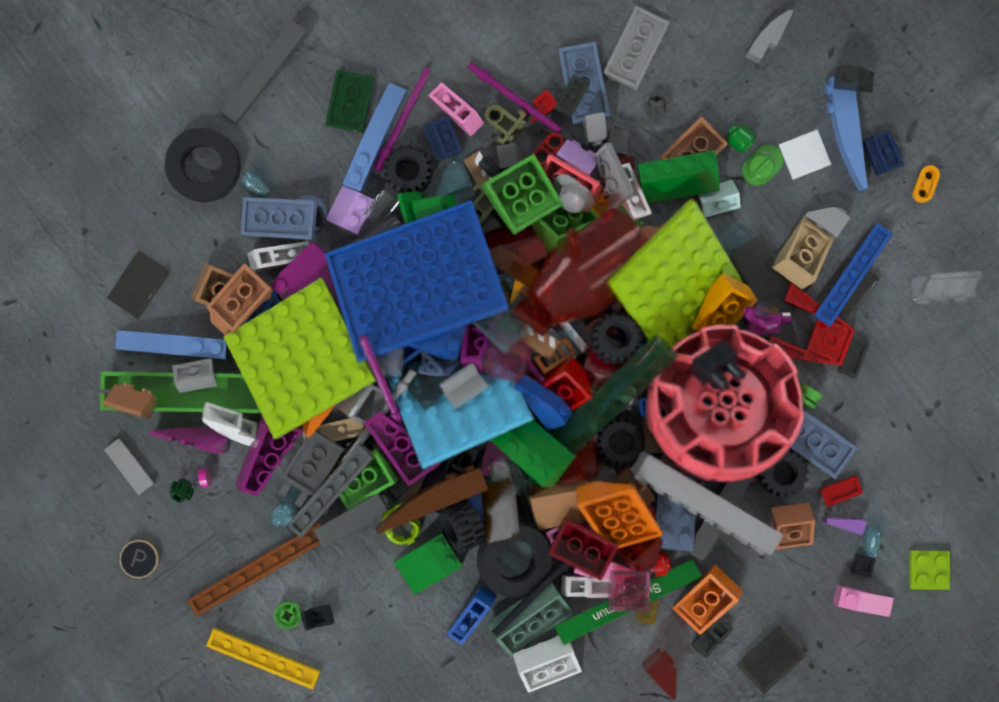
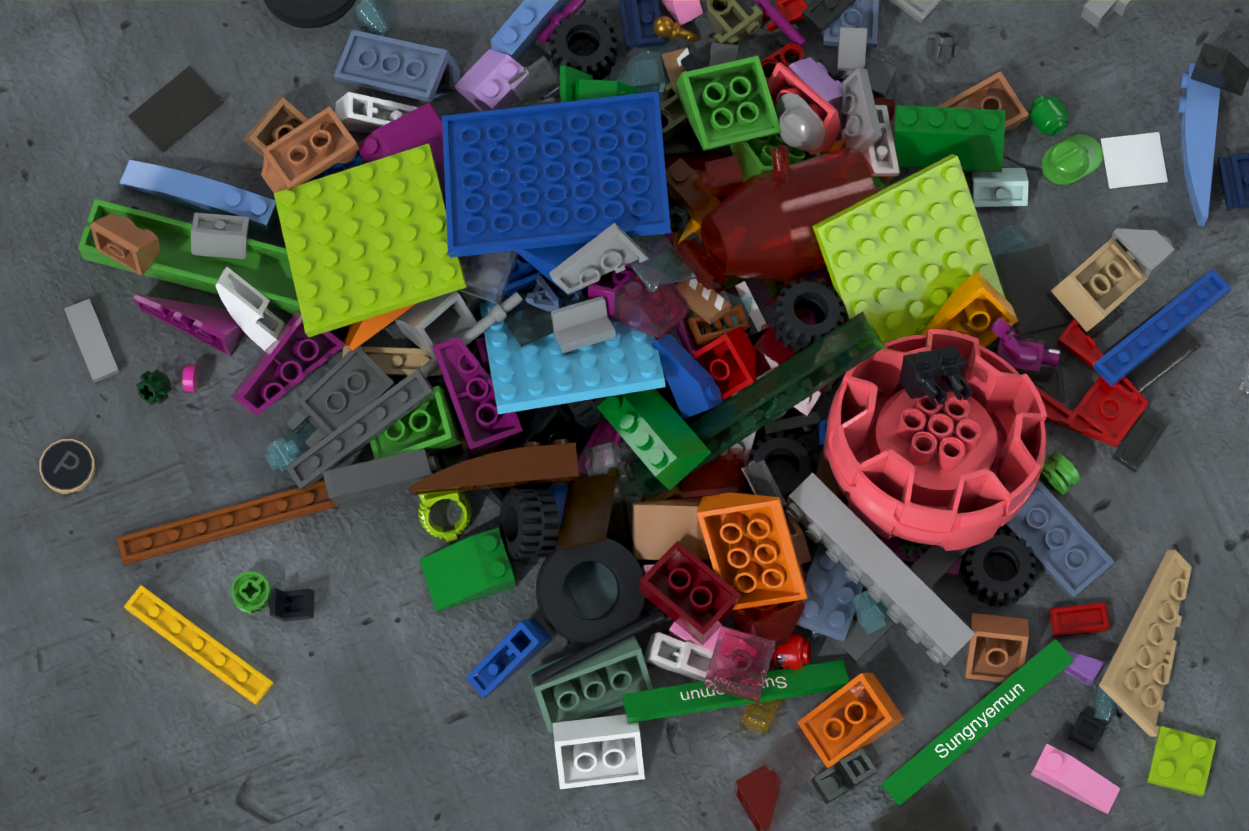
camera: 15 degrees right, 15 degrees down
(395, 412) = (478, 347): magenta bar -> none
(461, 141) = (666, 27): none -> pearl gold bar
(468, 334) = (603, 254): none -> light grey wing
(614, 464) = (762, 480): none -> clear piece
(705, 531) = (868, 614): none -> clear light blue cone
(792, 581) = (977, 722): none -> green tile
(893, 499) = (1148, 648): none -> tan wing

